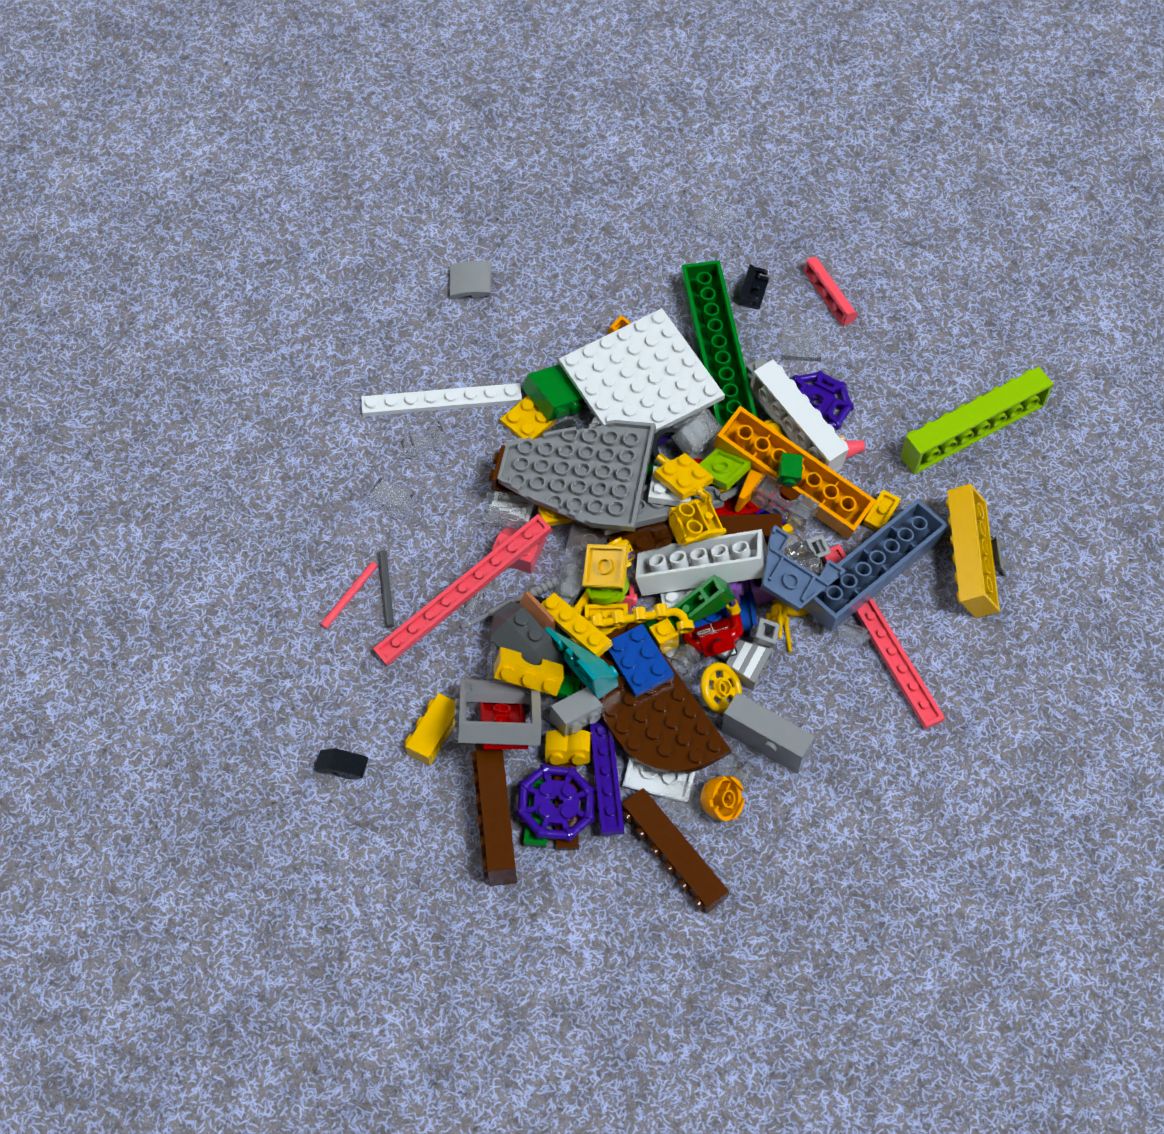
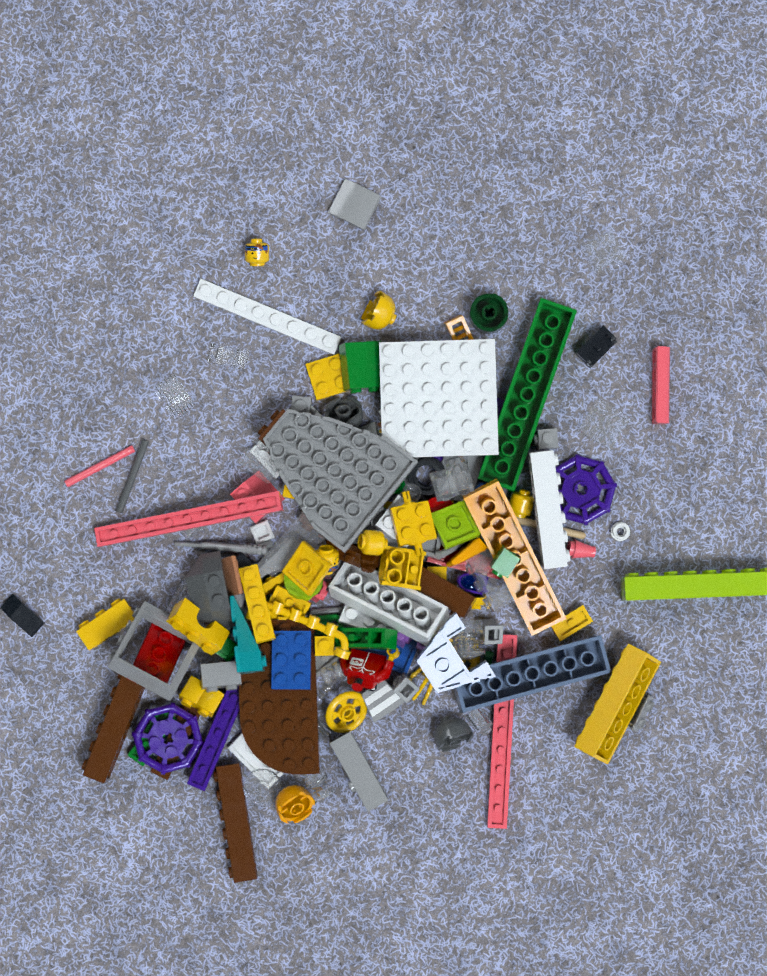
camera: 25 degrees right, 25 degrees up
(402, 352) = (256, 252): none -> yellow head
(540, 574) = (262, 532): none -> white tile
(544, 344) = (379, 312): none -> yellow cylinder
(642, 299) = (491, 324): none -> dark green brick
(655, 510) = (372, 542): none -> yellow head
(836, 654) = (451, 733): none -> dark grey cylinder
(874, 413) = (625, 527): none -> white plate

